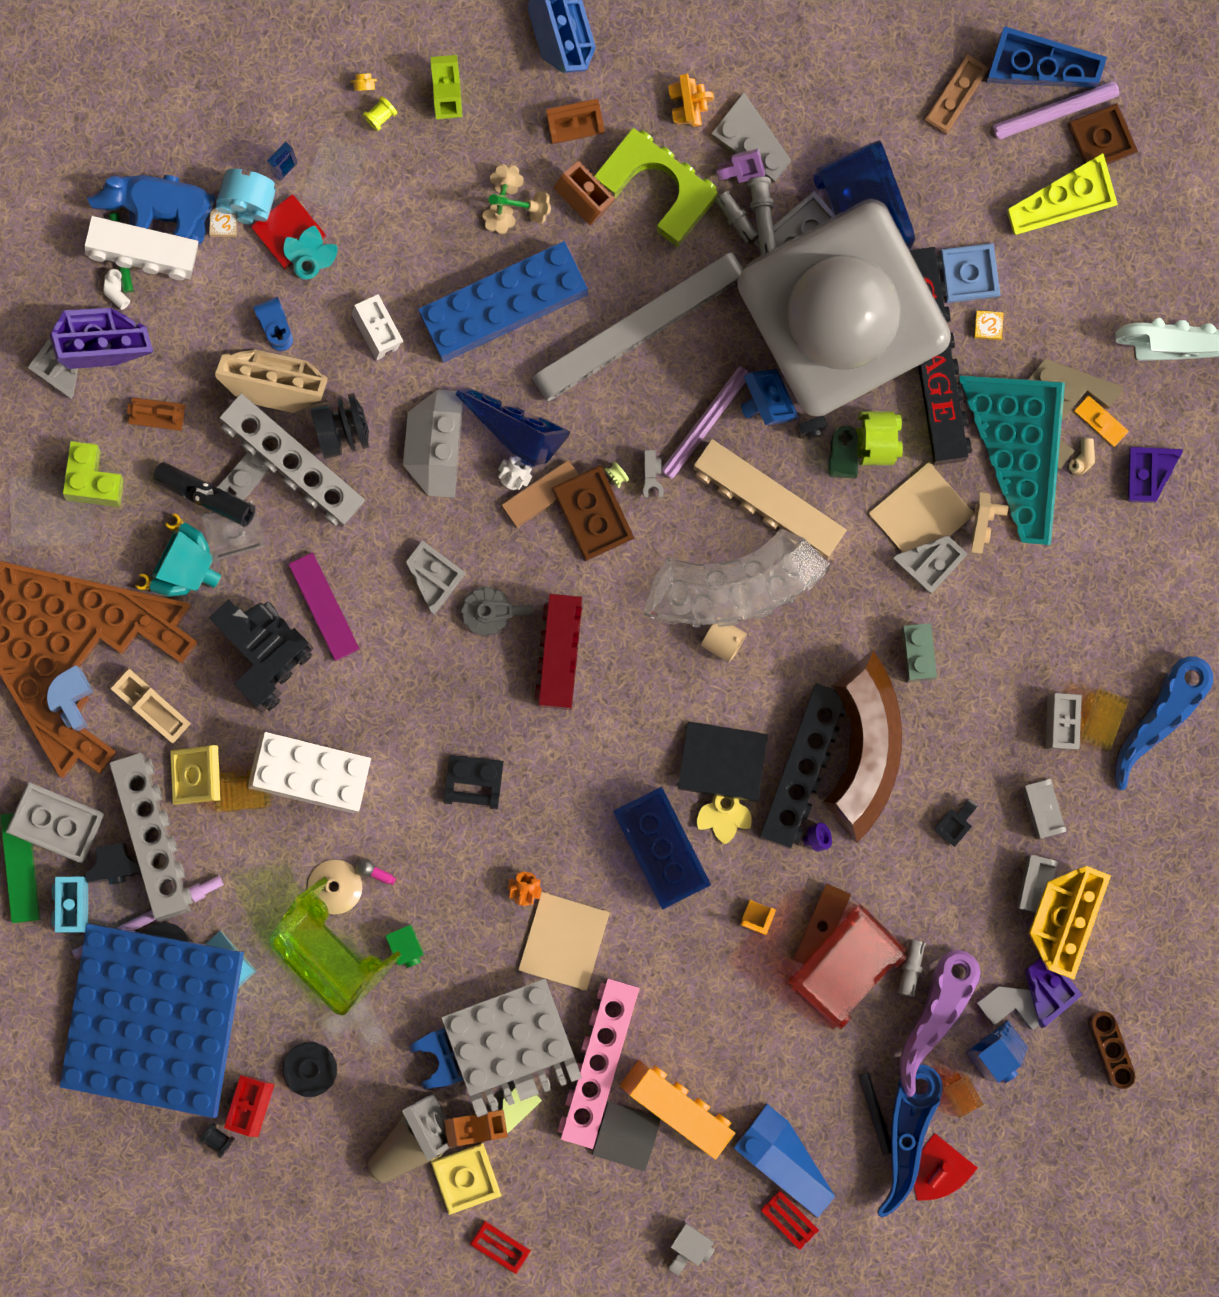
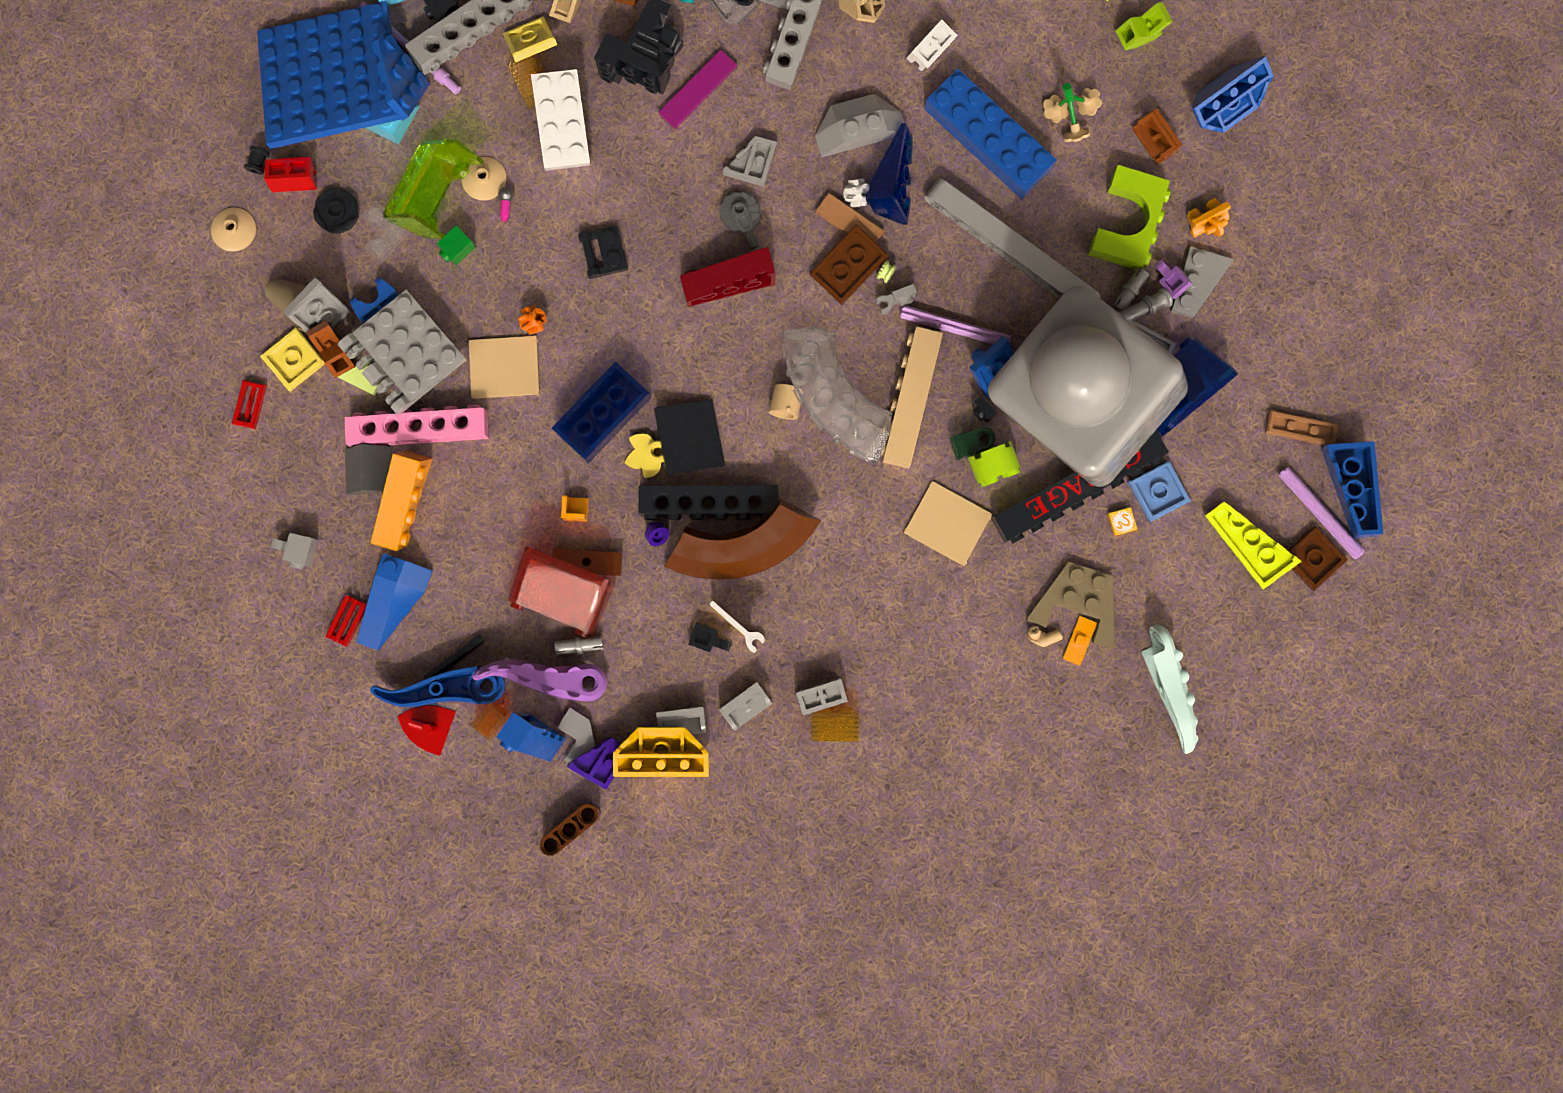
camera: 70 degrees right, 0 degrees up
(190, 935) = (401, 76): none -> blue plate
(298, 1189) = (242, 233): none -> tan dish
(339, 425) = (841, 43): black wheel -> none
(584, 193) = (1101, 162): dark orange brick -> none
(919, 653) = (833, 559): sand green brick -> none
(931, 562) = (911, 544): light grey wing -> none
(973, 775) = (750, 636): none -> white flag
(983, 512) = (966, 569): tan plate -> none
(1022, 437) = (1042, 579): teal wing -> none
(1149, 472) = (1053, 694): dark purple wing -> none
(1168, 711) = (860, 778): blue animal -> none

